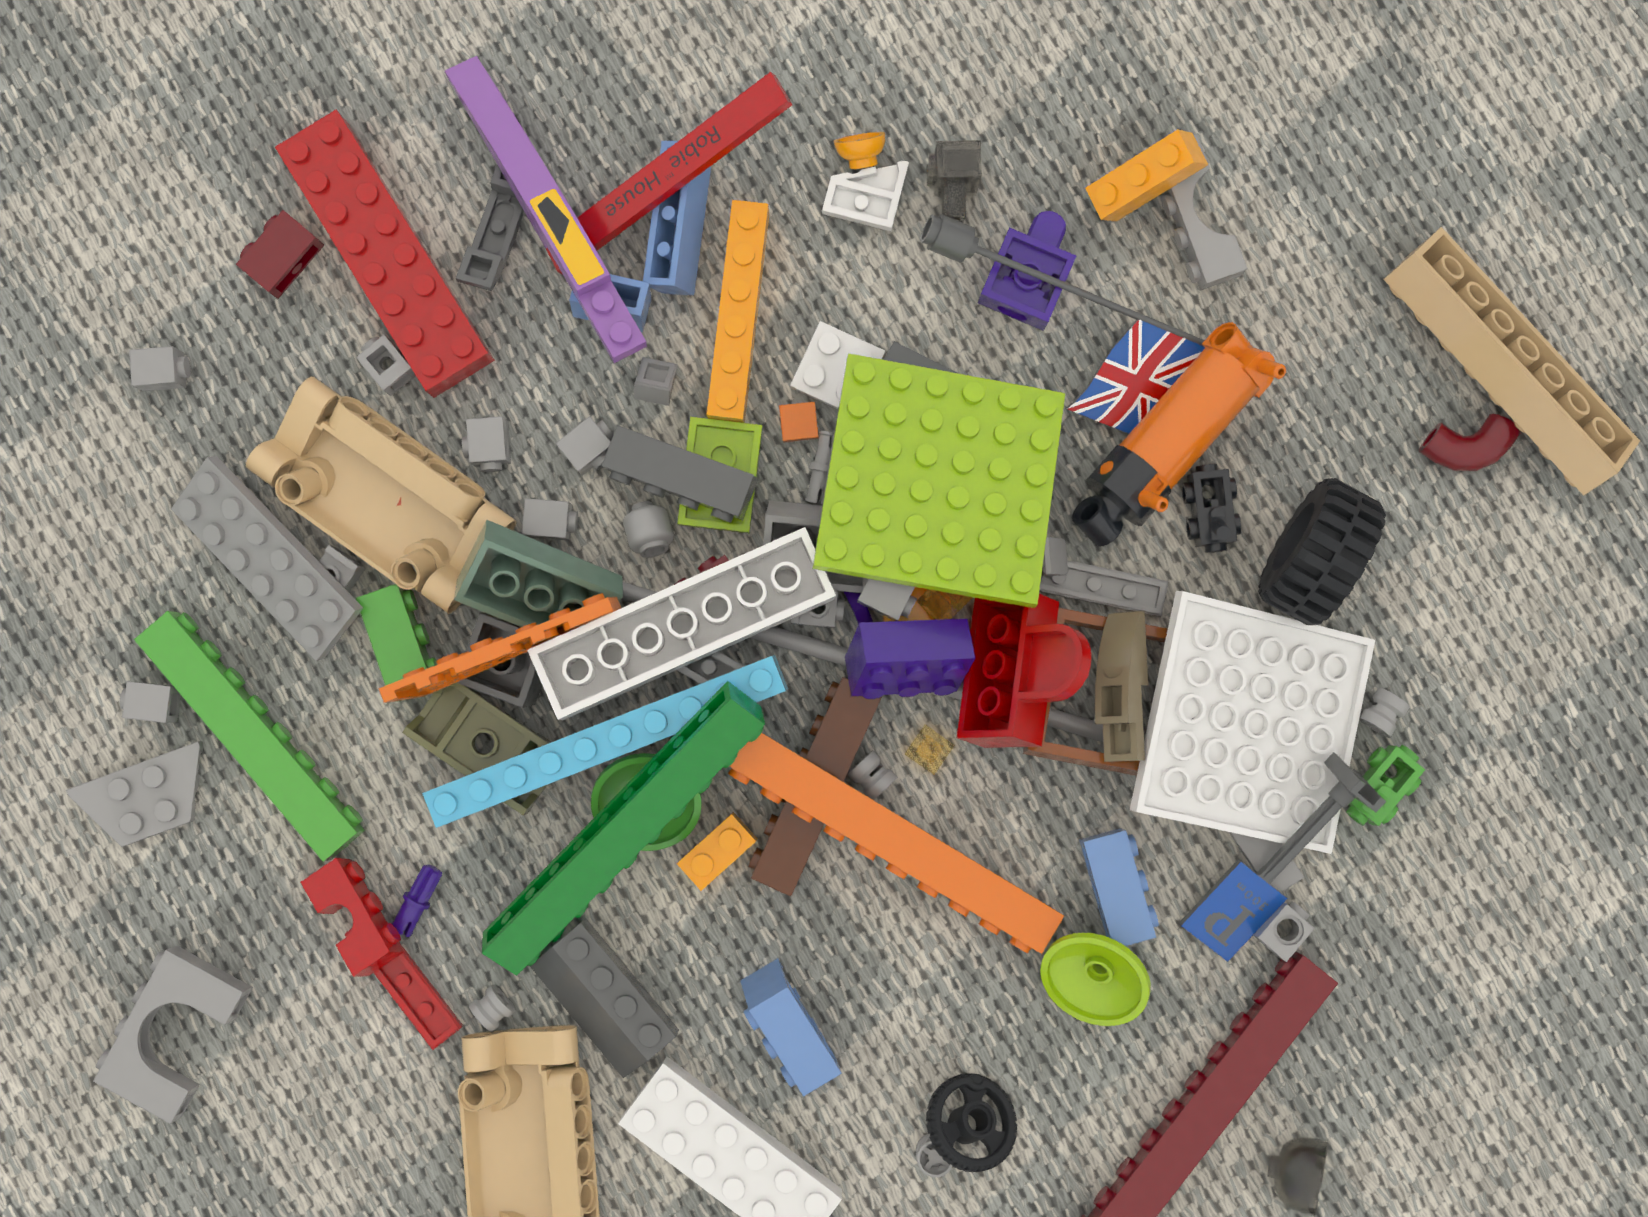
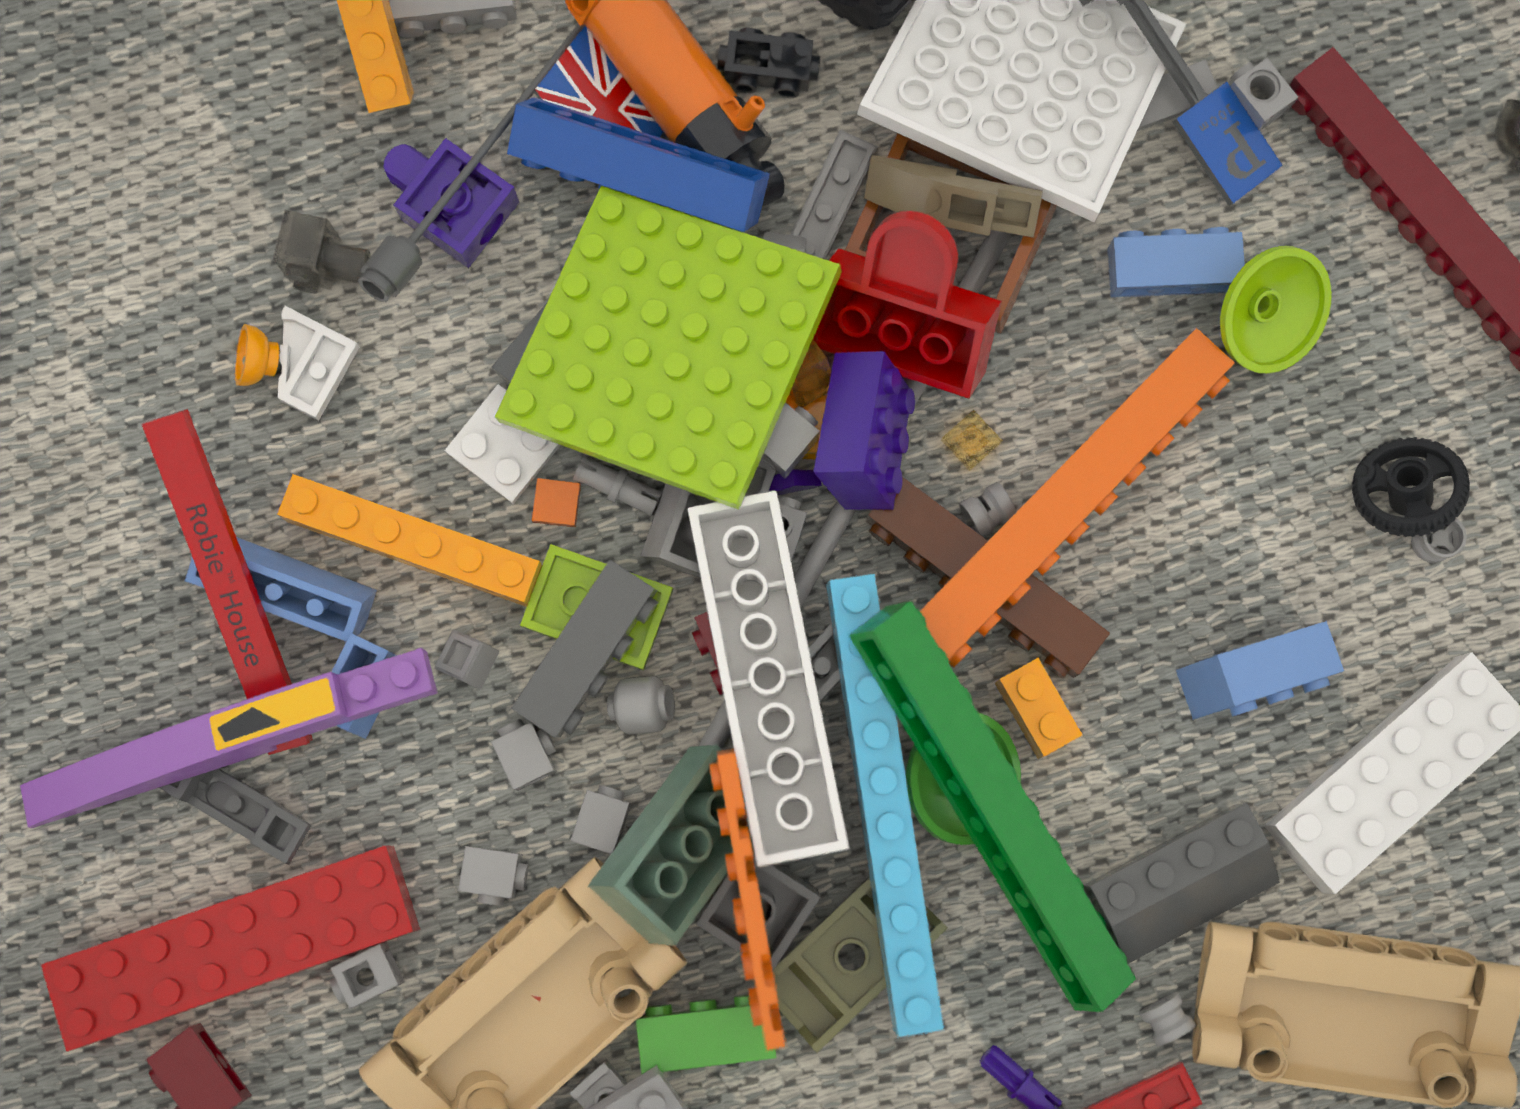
camera: 80 degrees left, 5 degrees down
(1089, 418) = (637, 164): none -> blue brick

